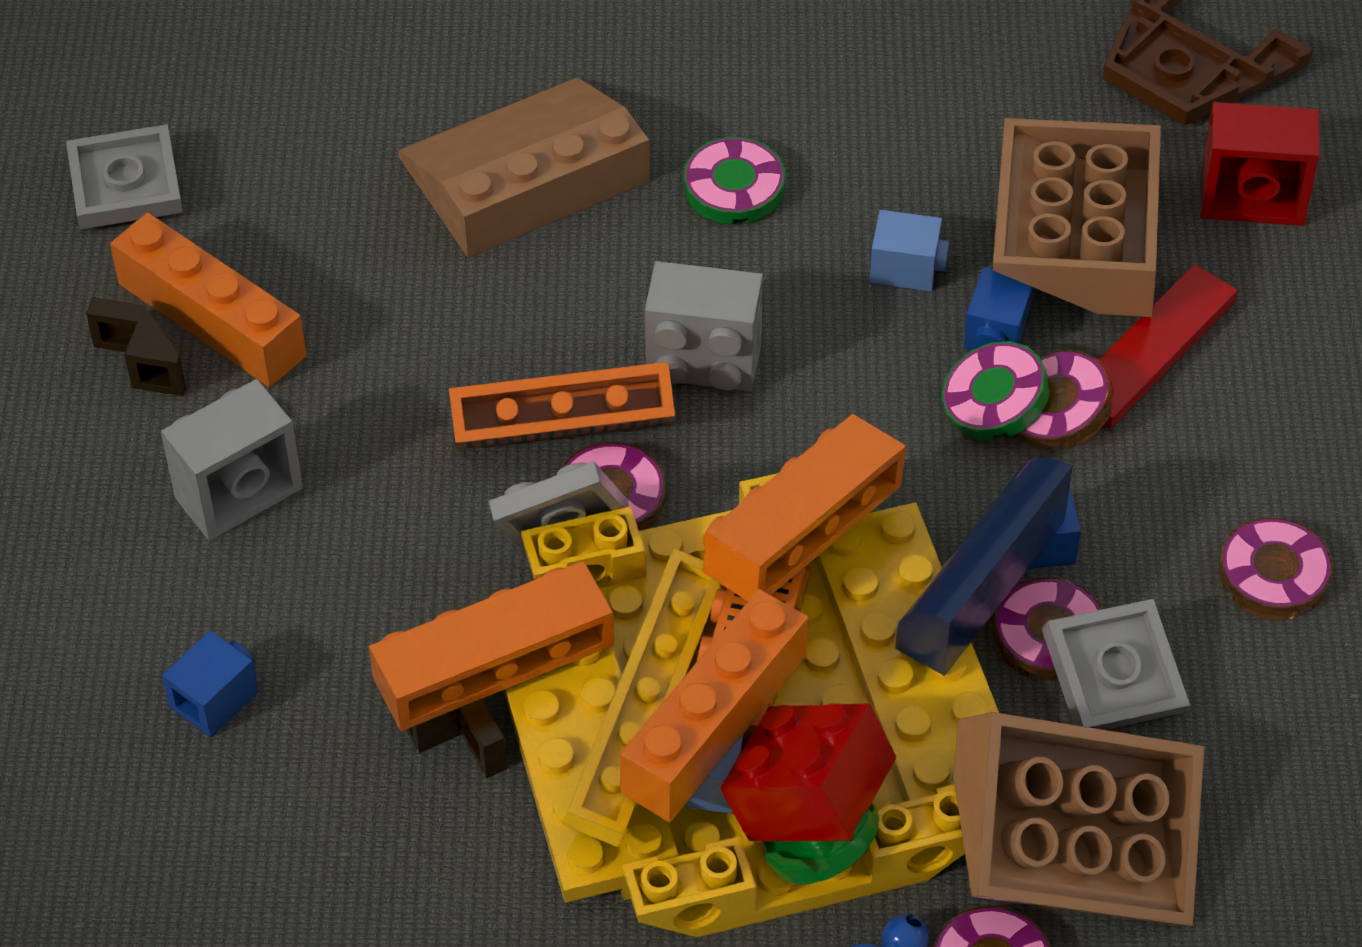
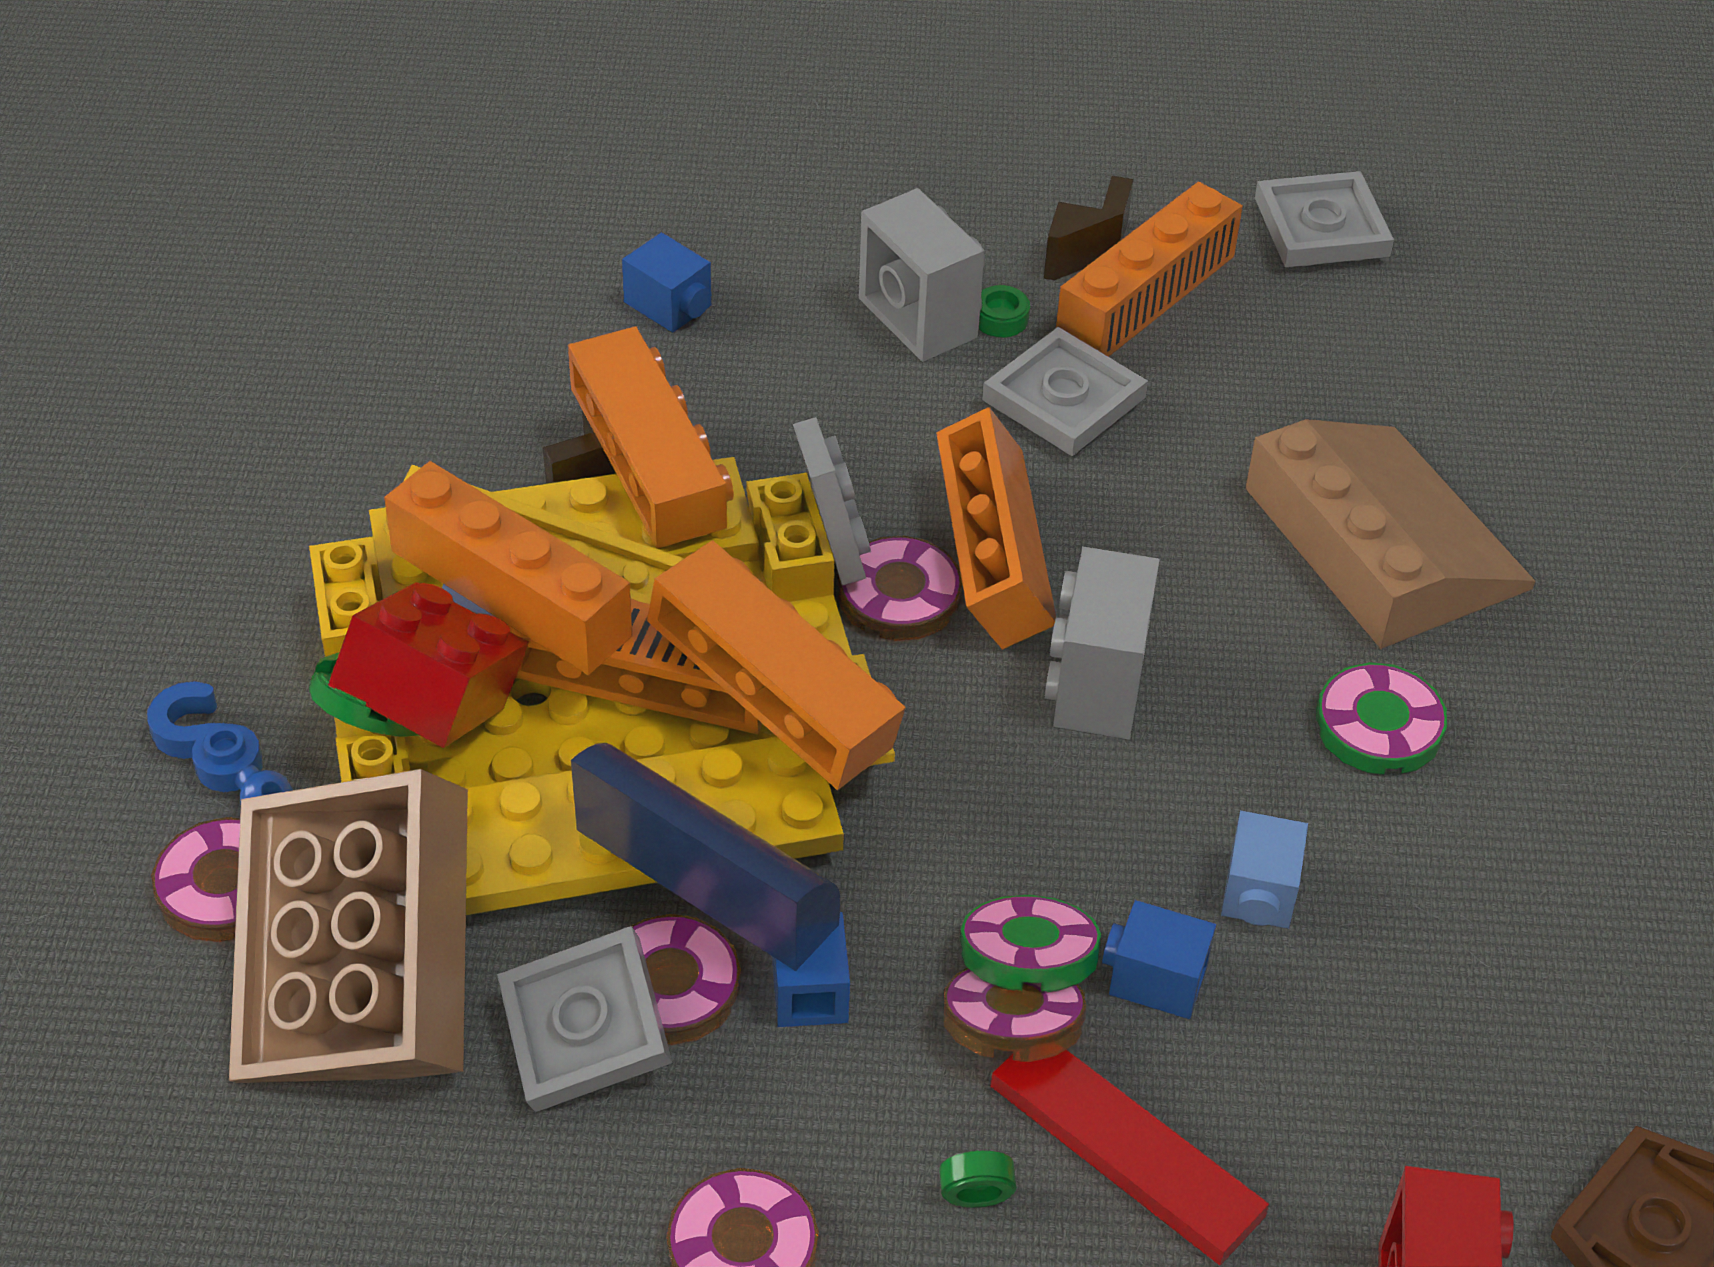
camera: 90 degrees right, 5 degrees down
(363, 369) = (1064, 391): none -> light grey plate
(1080, 212) = (1323, 1046): medium nougat slope -> none
(1207, 422) = (977, 1179): none -> green tile

